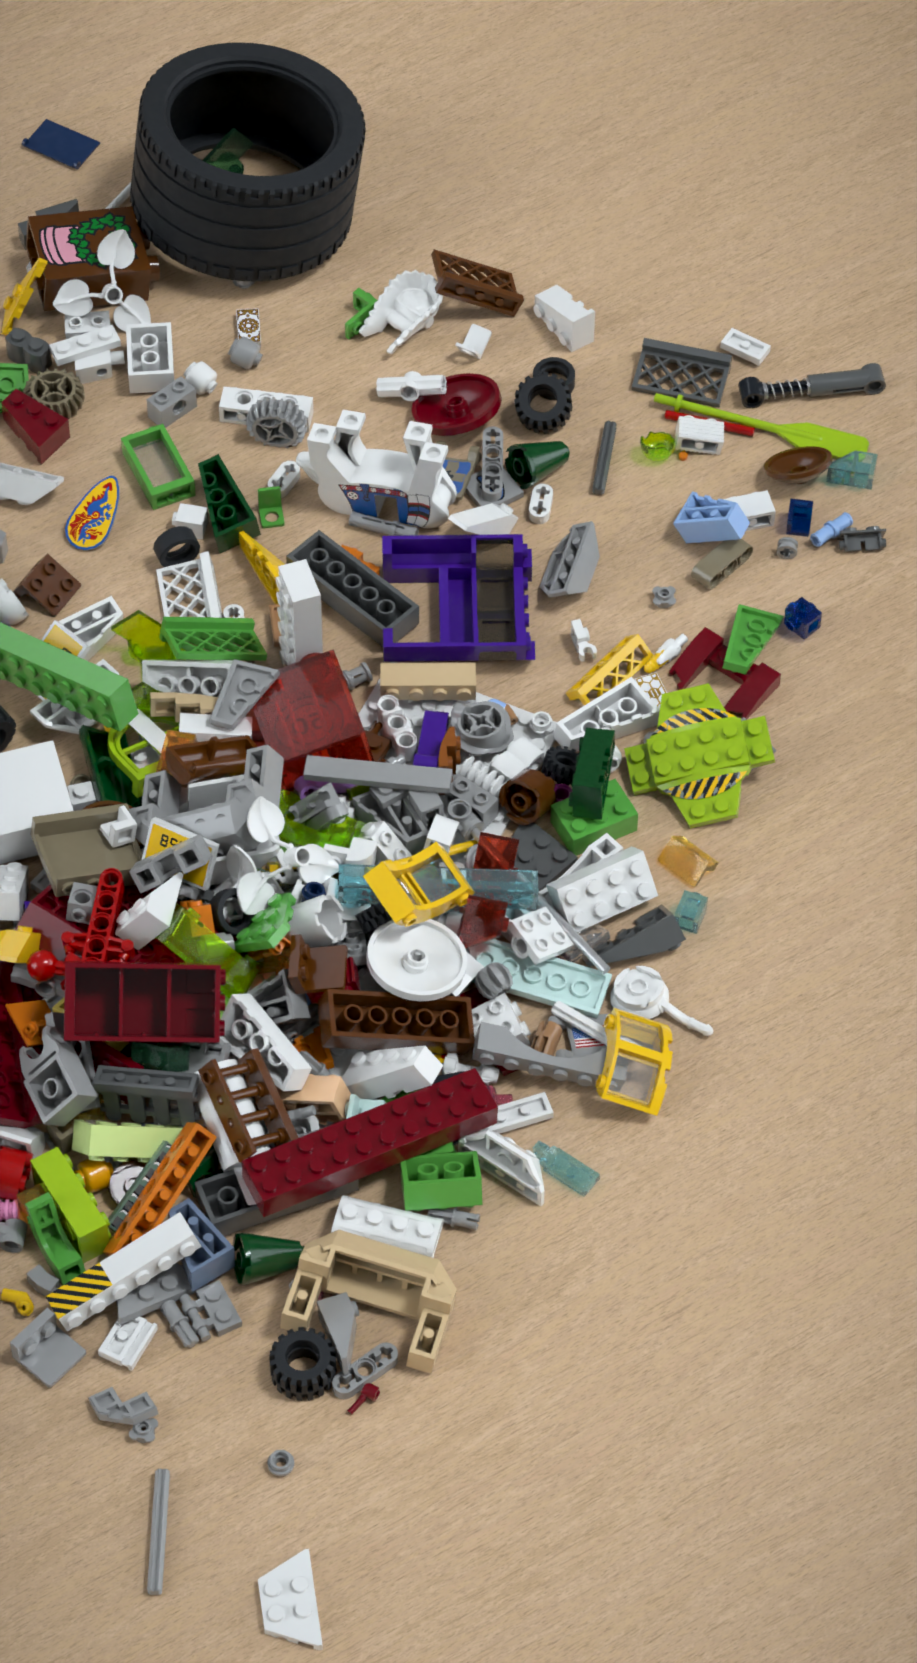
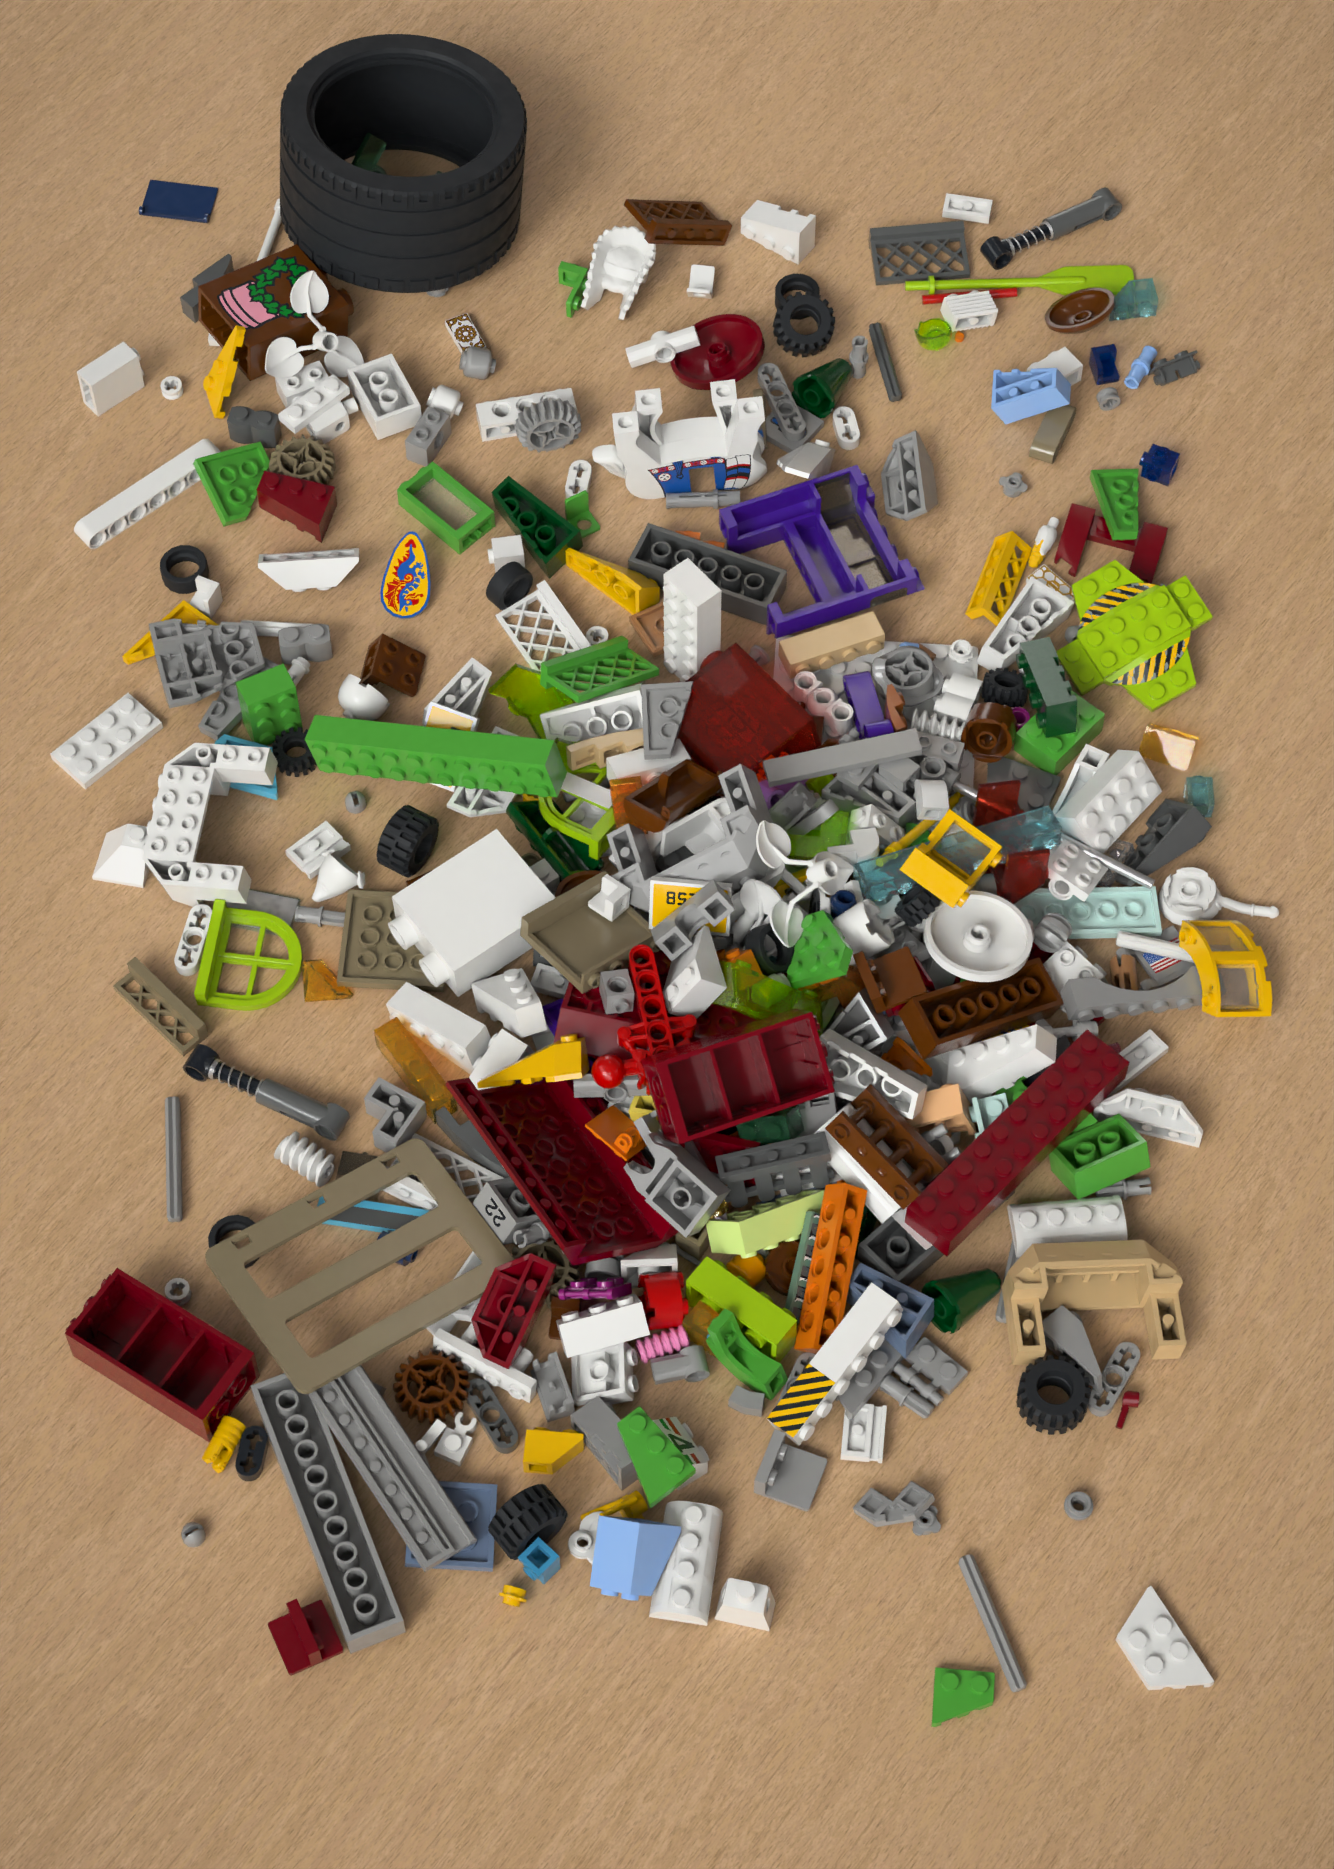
camera: 20 degrees left, 5 degrees up
(20, 1299) = (732, 1428): yellow arm -> none
(103, 1578) = (960, 1692): none -> bright green wing
(566, 1168) = (1207, 1100): clear light blue hinge -> none
(578, 445) = (859, 356): none -> light grey pin
(580, 637) = (953, 553): white plate -> none

